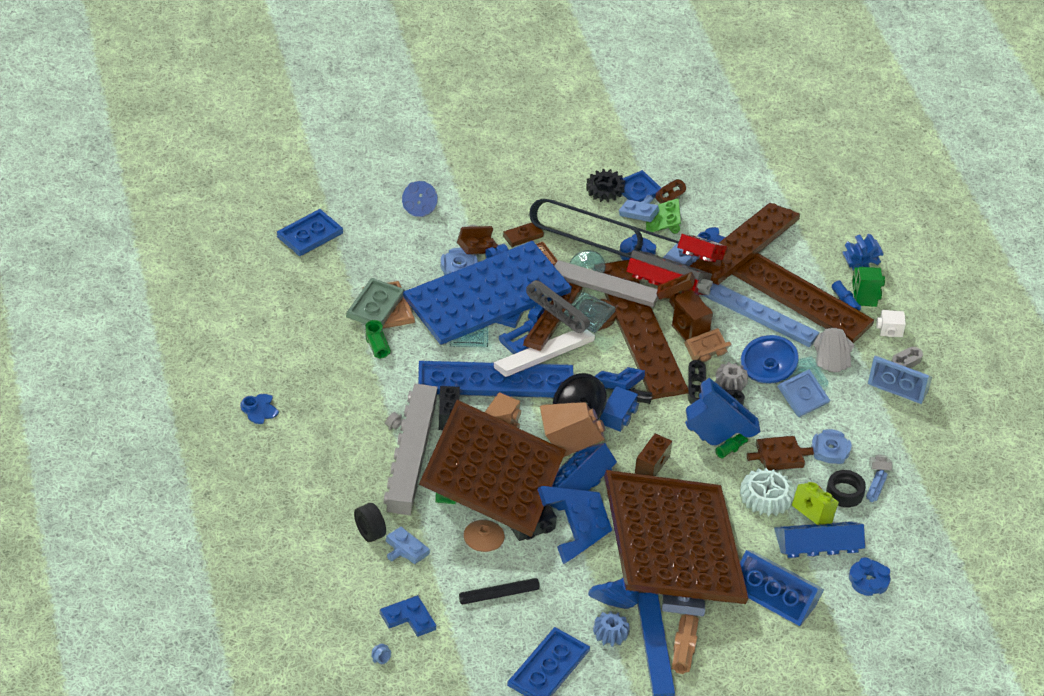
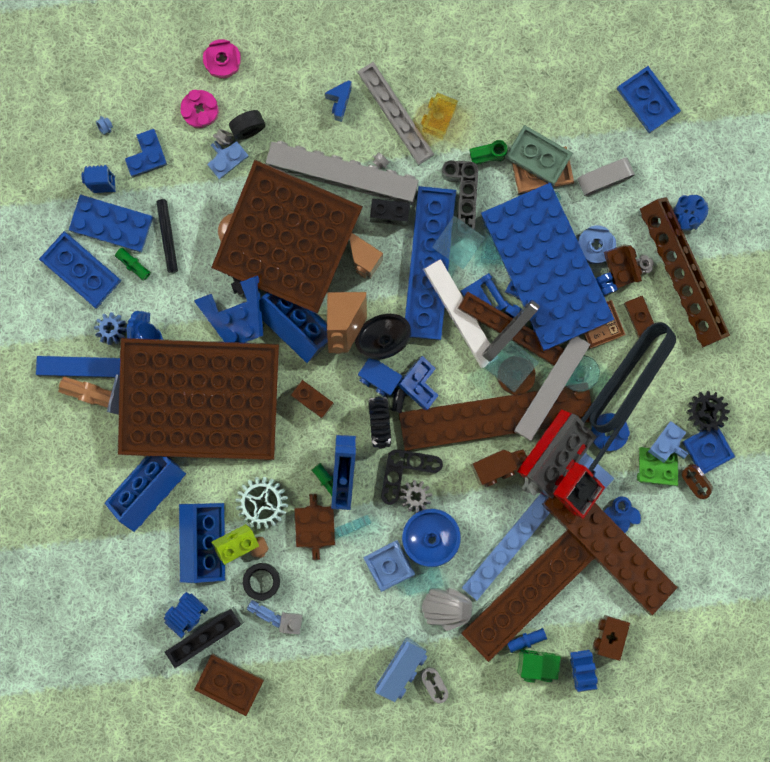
camera: 100 degrees right, 40 degrees up
(258, 408) = (406, 40): blue plate -> none
(294, 565) = (213, 52): none -> dark pink plate
(331, 451) = (341, 95): none -> blue slope
(340, 415) = (395, 113): none -> light grey tile
(342, 376) = (443, 105): none -> clear yellow brick
(348, 563) = (197, 98): none -> dark pink plate
(383, 546) = (223, 137): none -> light grey plate
(391, 258) = (606, 176): none -> light grey beam
(410, 352) = (465, 181): none -> dark grey beam
(447, 641) = (99, 179): none -> blue brick
(474, 350) = (458, 242): none -> clear light blue tile
(492, 642) = (110, 223): none -> blue plate
(533, 180) = (685, 261): none -> reddish brown brick
(535, 617) = (132, 264): none -> green pin
(666, 399) = (380, 422): none -> black gear
(676, 285) = (523, 453): reddish brown plate -> none
(707, 345) = (461, 480): medium nougat bracket -> none
(772, 422) = (353, 525): none -> clear light blue beam
(826, 240) = (613, 648): none -> reddish brown brick
(837, 454) = (308, 584): medium blue plate -> none
(866, 566) = (142, 581): blue plate -> none
(891, 323) = (482, 679): white brick -> none
(897, 537) = (185, 615): none -> blue brick
(914, 524) = (204, 637): none -> black brick
(954, 508) = (229, 684): none -> reddish brown plate

